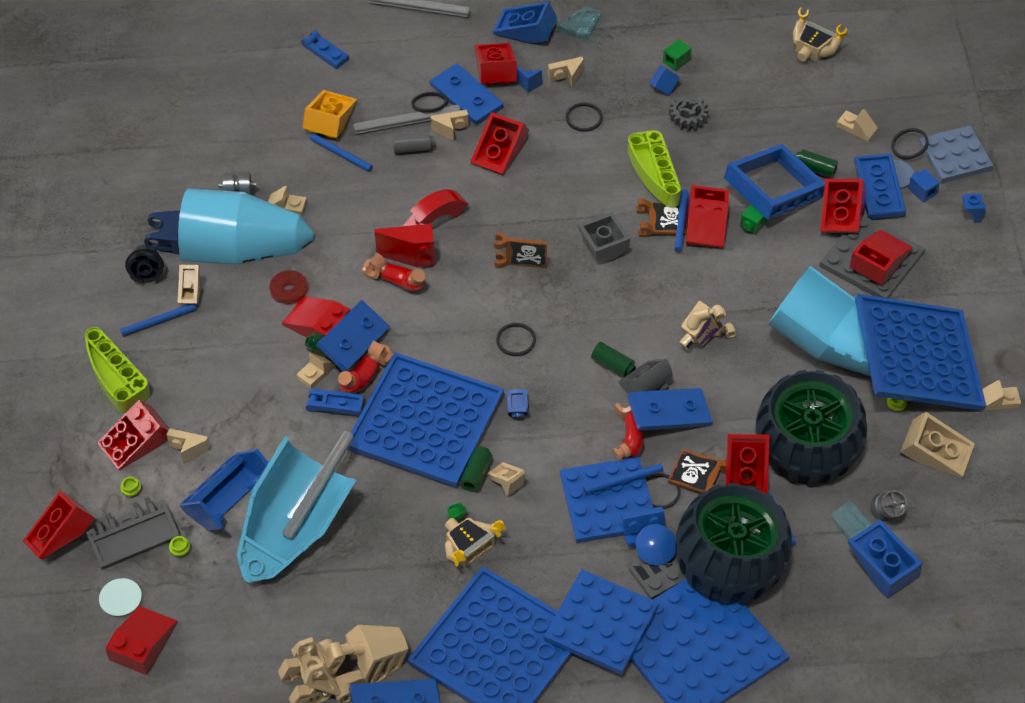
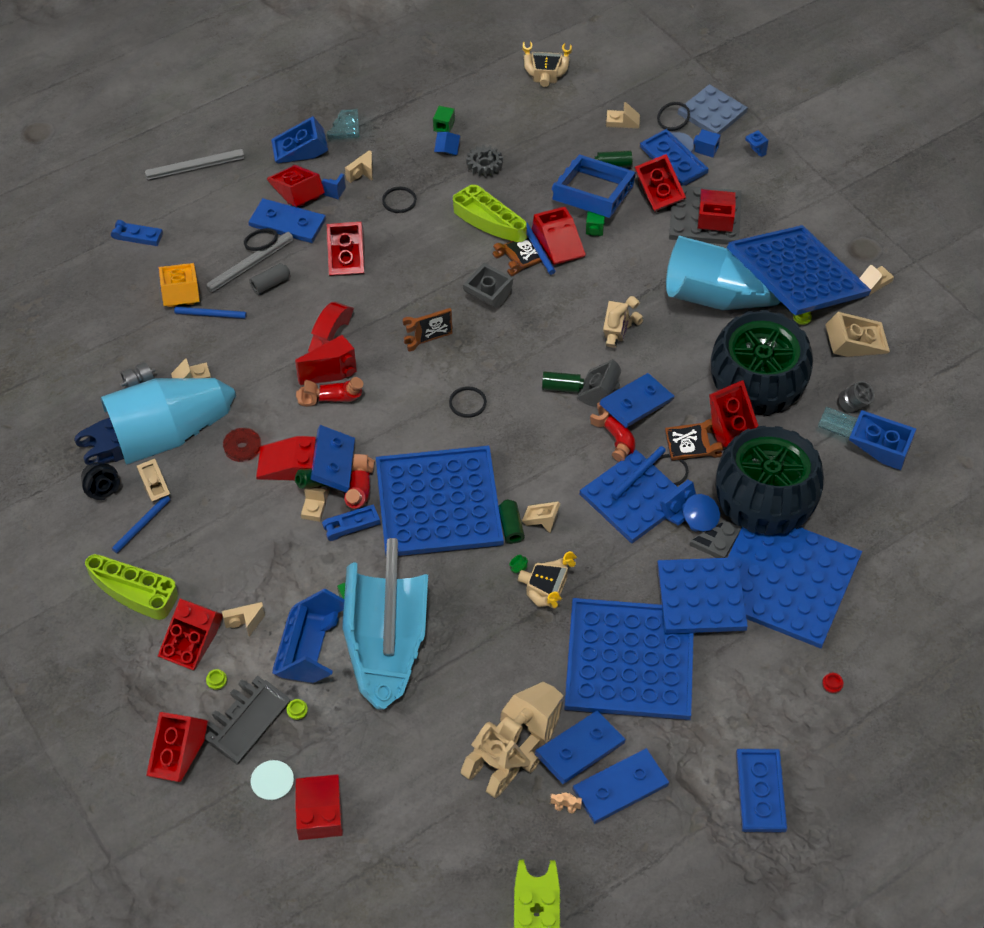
camera: 30 degrees left, 0 degrees up
(447, 122) = (290, 250): tan slope -> none
(517, 402) = (507, 452): blue bracket -> none

